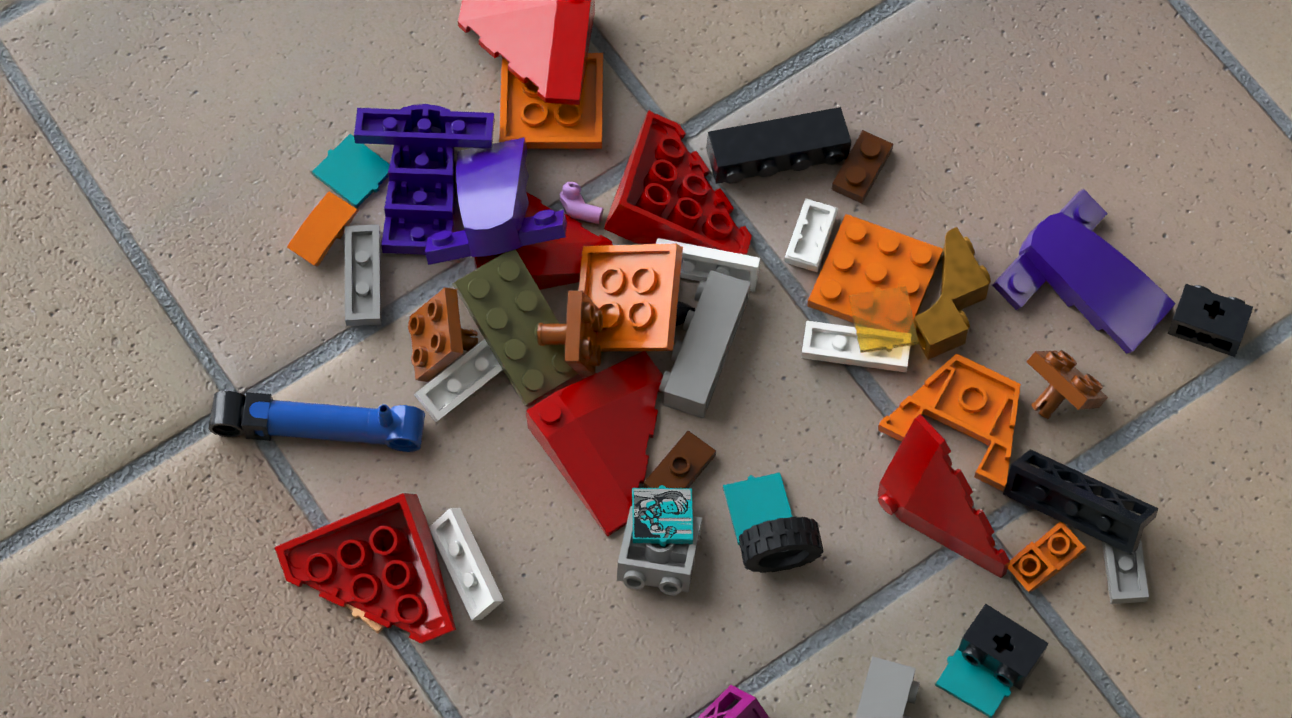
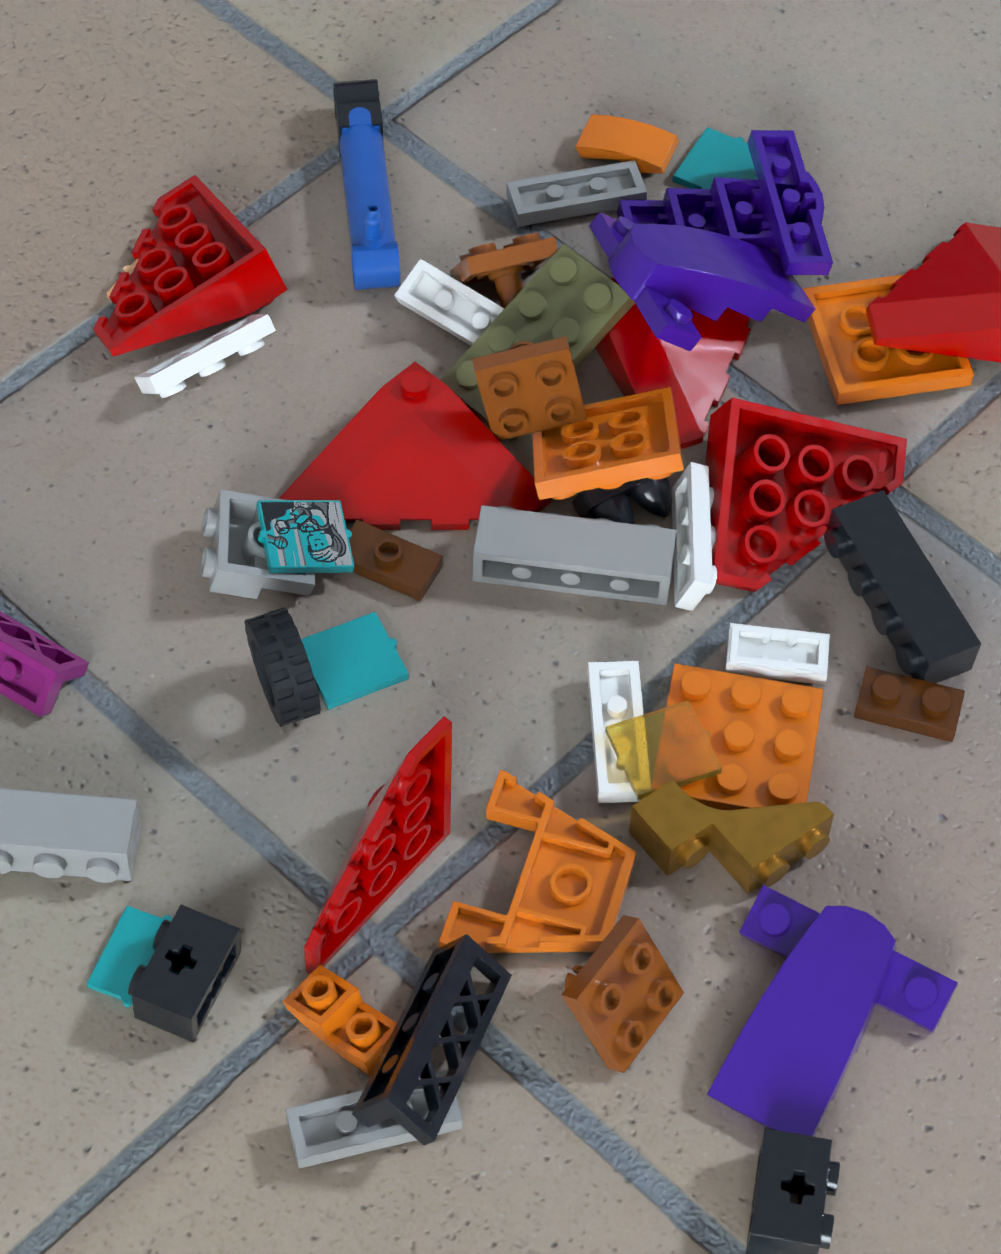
camera: 75 degrees right, 10 degrees down
(575, 205) = (747, 383): lavender arm -> none

